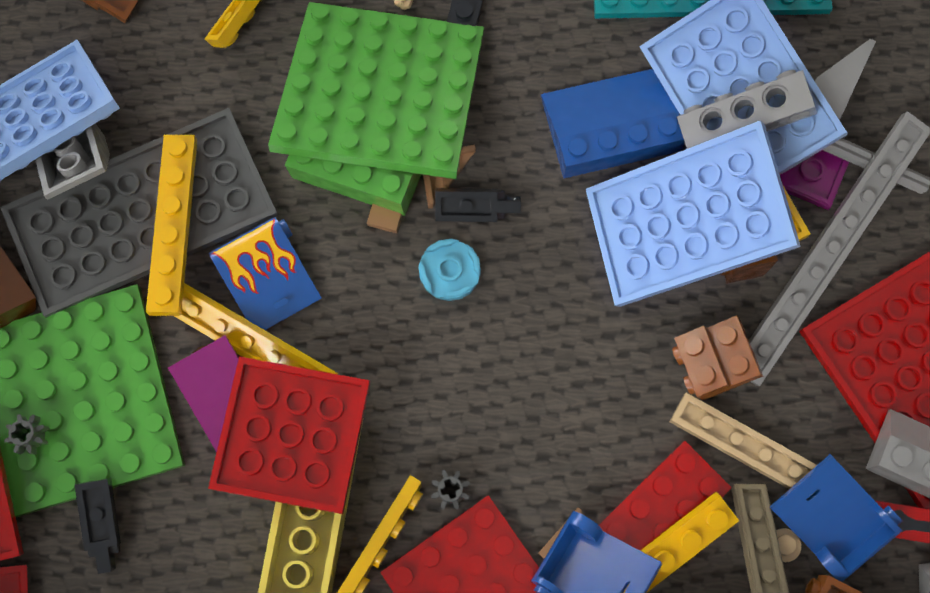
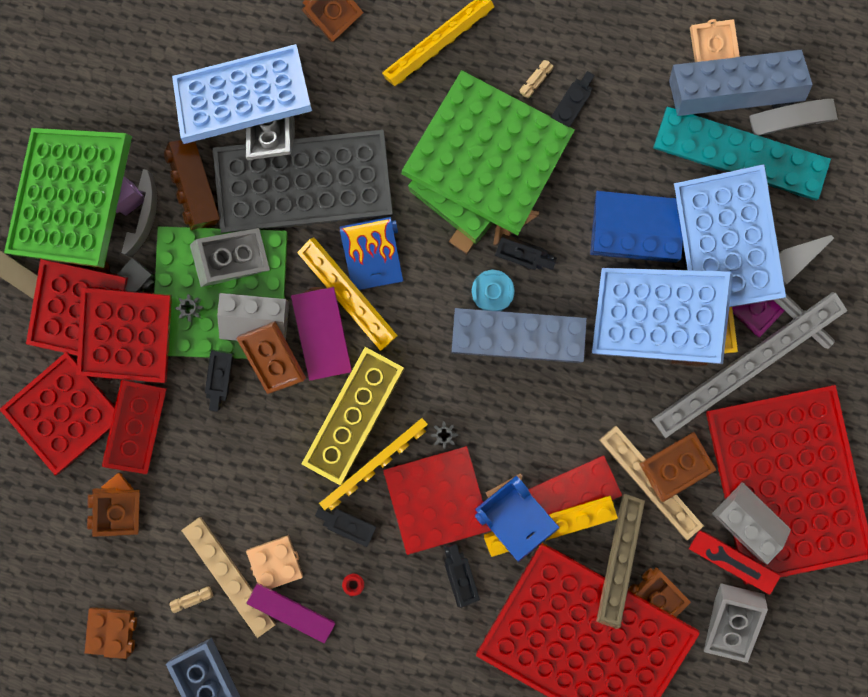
camera: 20 degrees right, 10 degrees up
(62, 343) = (229, 256): none -> light grey slope
(122, 418) = (245, 313): none -> light grey slope
(164, 464) = (271, 357): none -> dark orange tile
(171, 226) = (321, 200): yellow plate -> none
(290, 435) = (355, 368): red plate -> none
(506, 315) = (518, 335): none -> sand blue brick
(716, 358) = (644, 411): plate -> none
(789, 544) = (644, 542): tan plate -> none
(792, 420) = (677, 467): none -> dark orange tile
(796, 107) = (760, 267): light grey brick -> none
(838, 520) = (680, 538): blue door -> none

